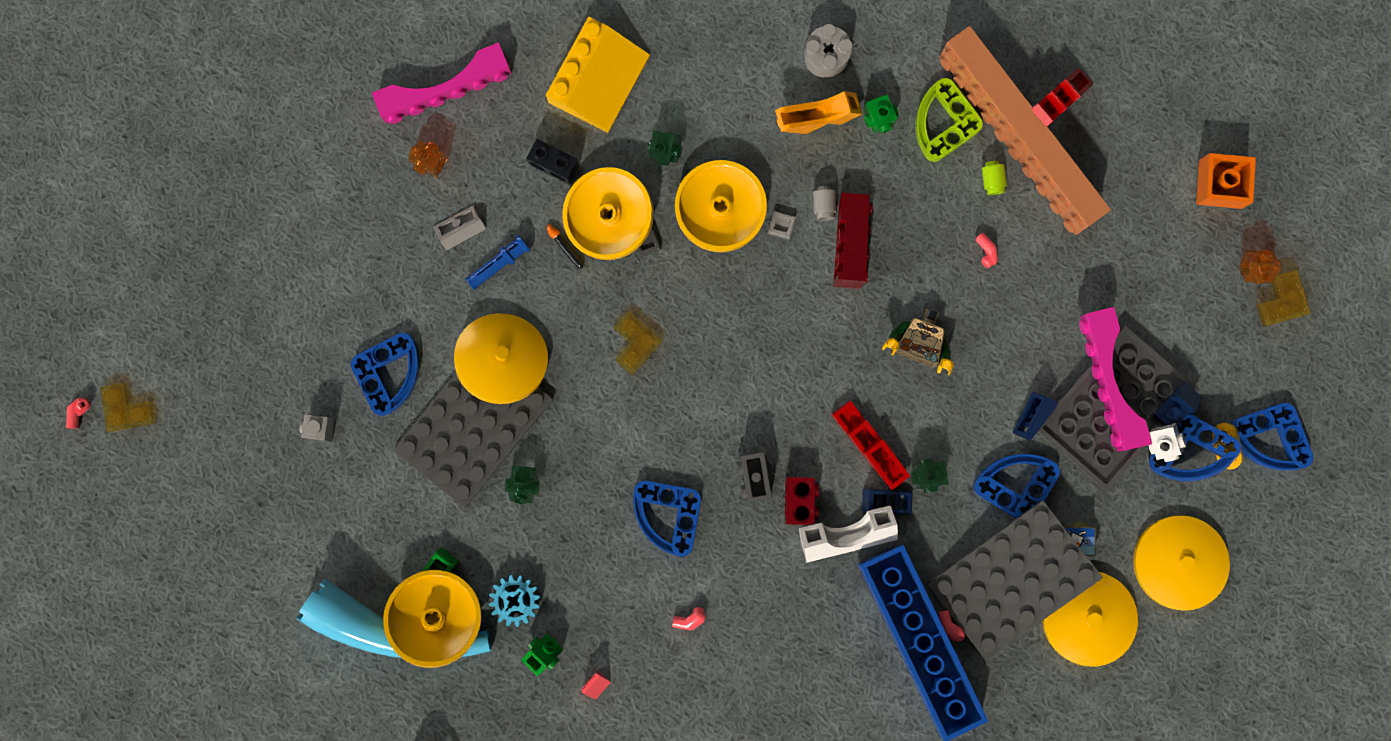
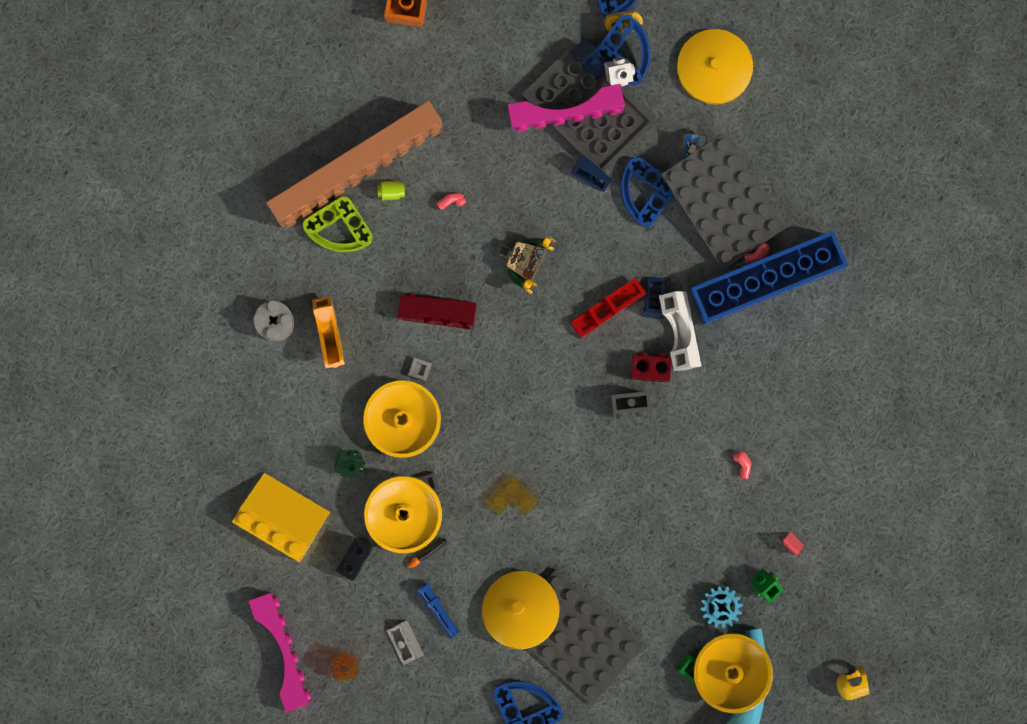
camera: 90 degrees left, 0 degrees up
(522, 484) = (627, 596): clear green brick -> none
(677, 502) = (647, 469): blue beam -> none
(825, 203) = (403, 332): light grey brick -> none
(880, 114) = (332, 287): green brick -> none
(937, 471) = (638, 255): clear green brick -> none
(1062, 97) = (328, 130): red slope -> none
(1095, 624) = (761, 139): yellow dish -> none

